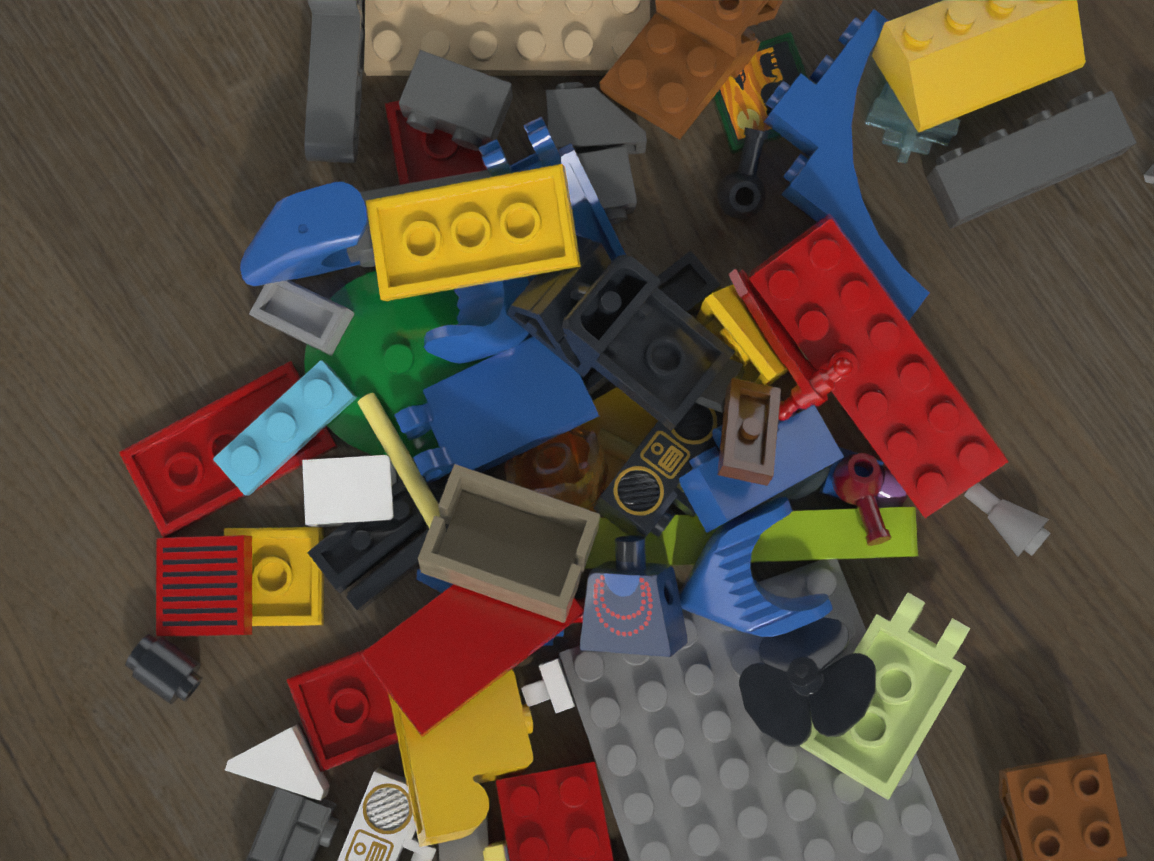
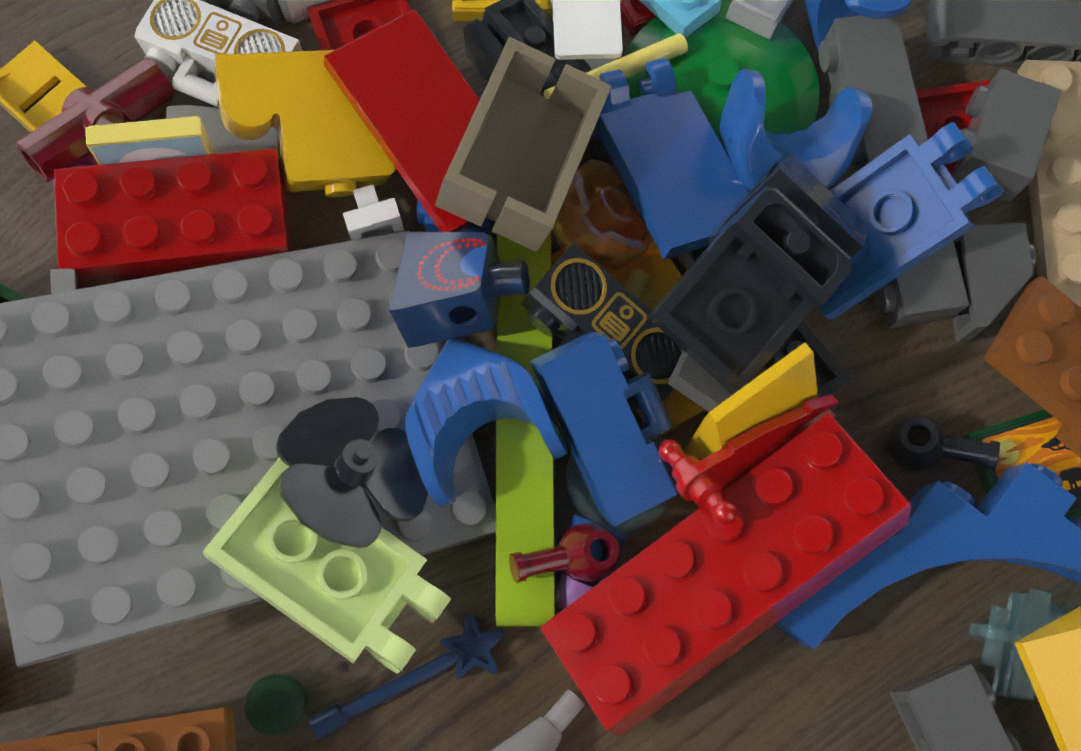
camera: 90 degrees right, 10 degrees down
(473, 233) = (869, 119): yellow tile -> none
(749, 432) = (645, 396): reddish brown plate -> none
(935, 584) = (465, 652): none -> dark blue piece
(987, 740) = (276, 704): none -> clear green tile

